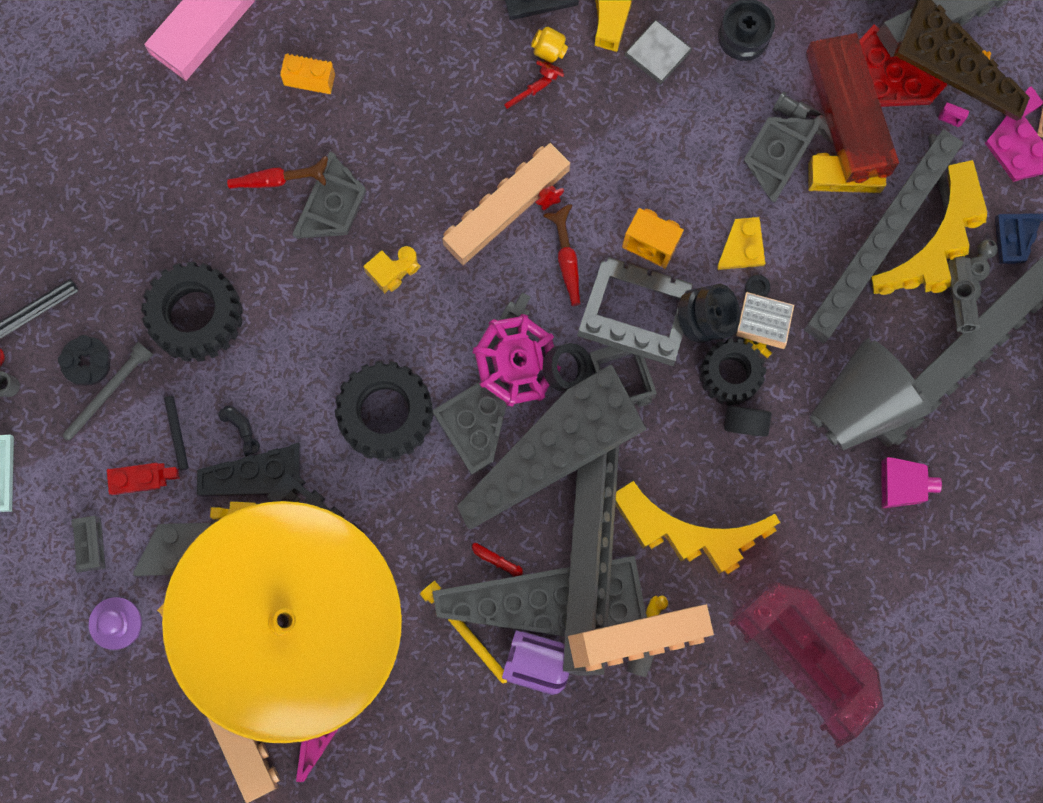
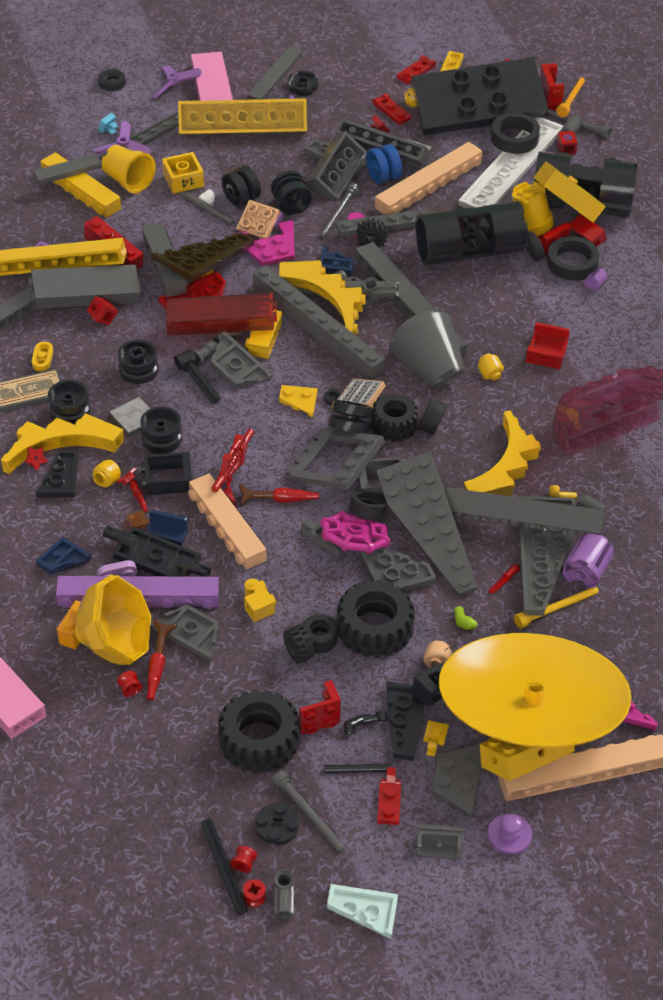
camera: 75 degrees left, 30 degrees down
(28, 335) = (243, 860): none -> red wheel
(239, 155) = (129, 683): none -> red wheel
(242, 386) = (323, 713): none -> red bracket
(295, 124) = (114, 621): none -> yellow rock
(327, 328) = (298, 643): none -> black tyre
(350, 335) = (322, 623): none -> black tyre
(350, 496) = (436, 653): none -> light nougat head
(373, 130) = (157, 591): none -> medium lavender brick
(392, 90) = (123, 568): none -> lavender plate
(410, 31) = (62, 556): none -> dark blue wing
(415, 519) = (464, 621): none -> lime arm
(435, 135) = (155, 554): none -> black plate
(477, 138) = (168, 526): none -> dark blue panel
(488, 107) = (138, 519): none -> clear orange plate
(575, 136) = (166, 461): none -> black window
(607, 187) = (233, 459): none -> red bar
(633, 88) = (161, 430): none -> black wheel
(640, 636) = (582, 487): light nougat brick -> none
(652, 237) = (283, 437): light orange brick -> none
(765, 92) = (187, 362): none -> black axle
(865, 483) = (490, 367): none -> yellow head
(906, 483) = (495, 343): dark pink torso -> none
(932, 557) = (548, 345): none -> red panel
(953, 114) = (239, 273): dark pink tile -> none

